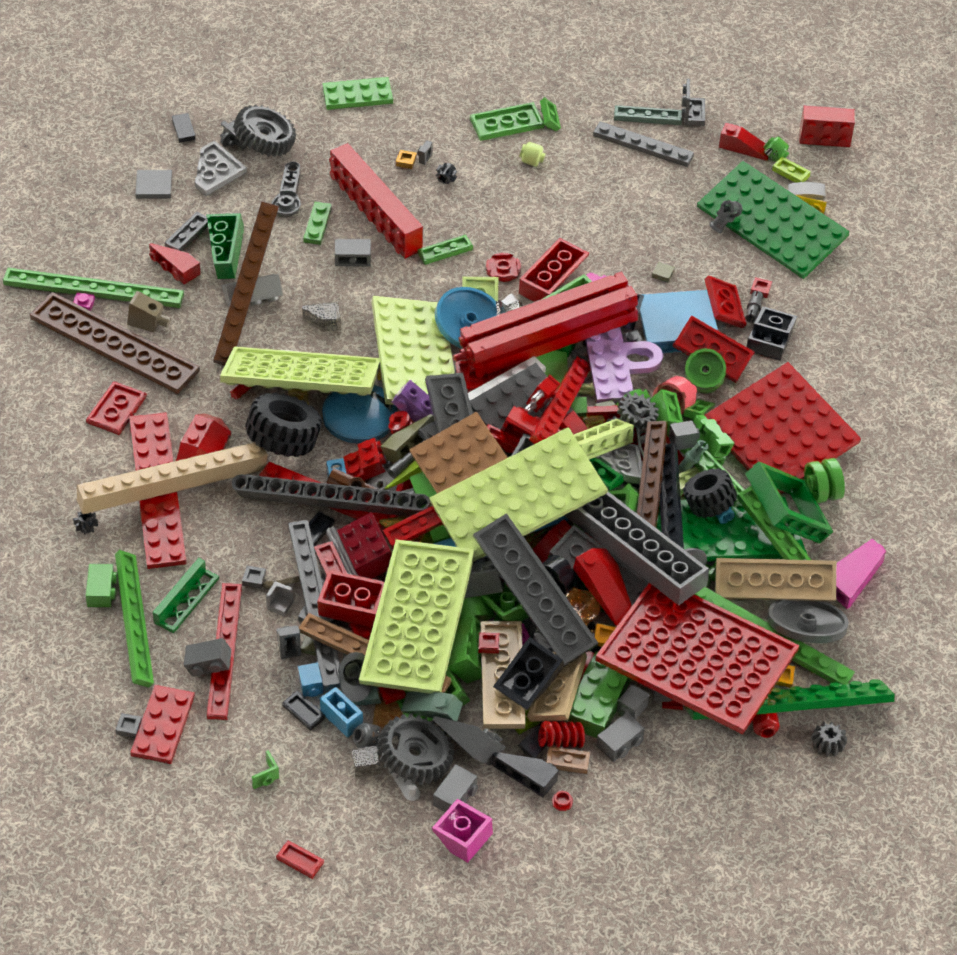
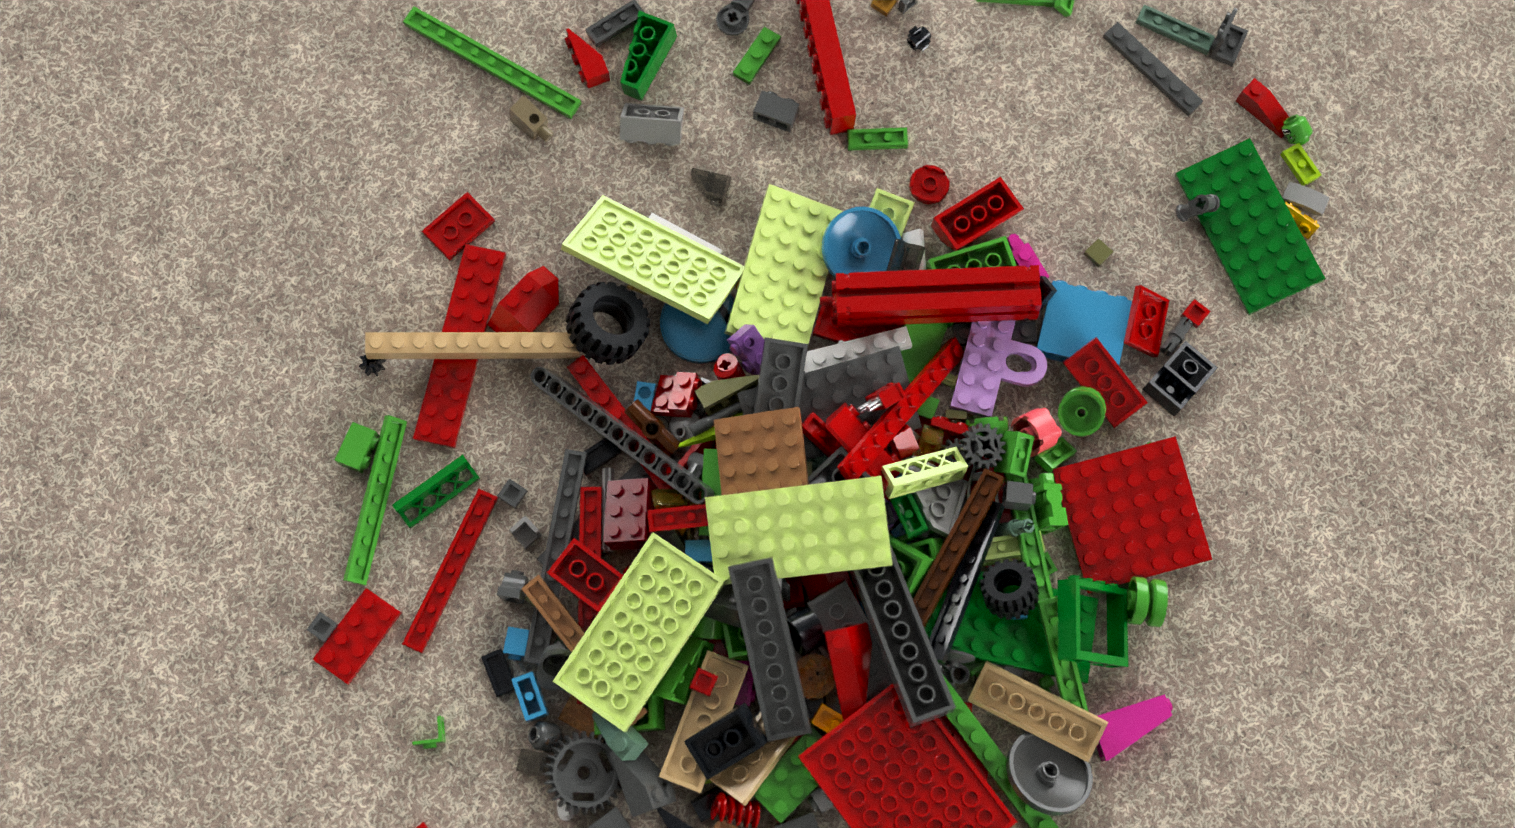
camera: 20 degrees right, 25 degrees up
(84, 300) = (476, 76): dark pink plate -> none
(115, 343) = (486, 143): plate -> none
(207, 657) = (425, 579): dark grey brick -> none
(246, 282) = (643, 120): reddish brown plate -> none
(268, 584) = (538, 512): dark tan piece -> none
(532, 154) = (1023, 43): yellowish green head -> none
(826, 126) = (1367, 121): red brick -> none

